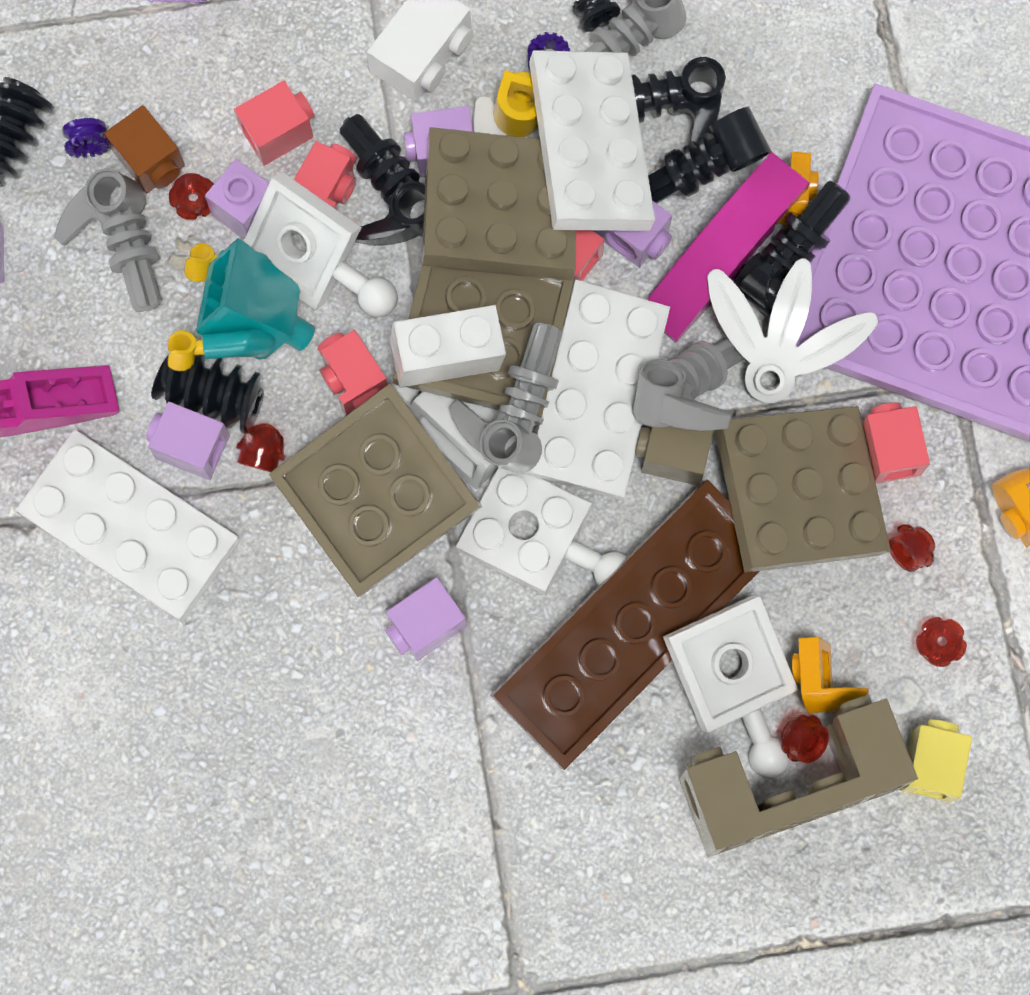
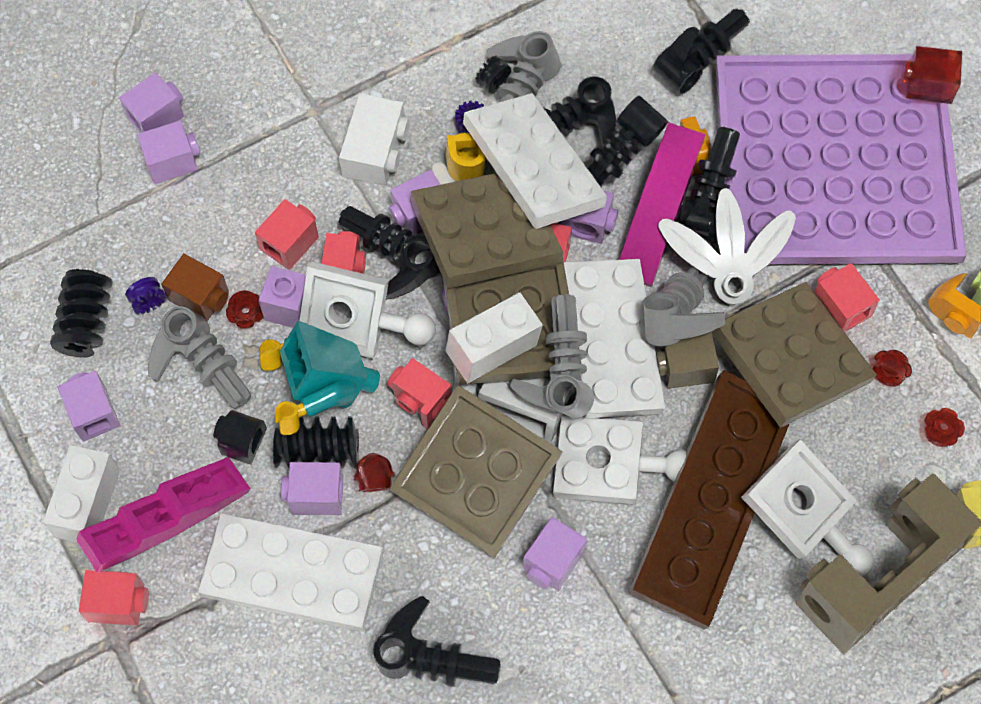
camera: 20 degrees left, 10 degrees down
(127, 346) = (239, 436): none -> black plate
(232, 683) = (429, 660): none -> black piece
(804, 739) = (877, 535): clear red plate -> none
(814, 671) = (861, 482): light orange plate -> none
(829, 73) = (695, 49): none -> black piece

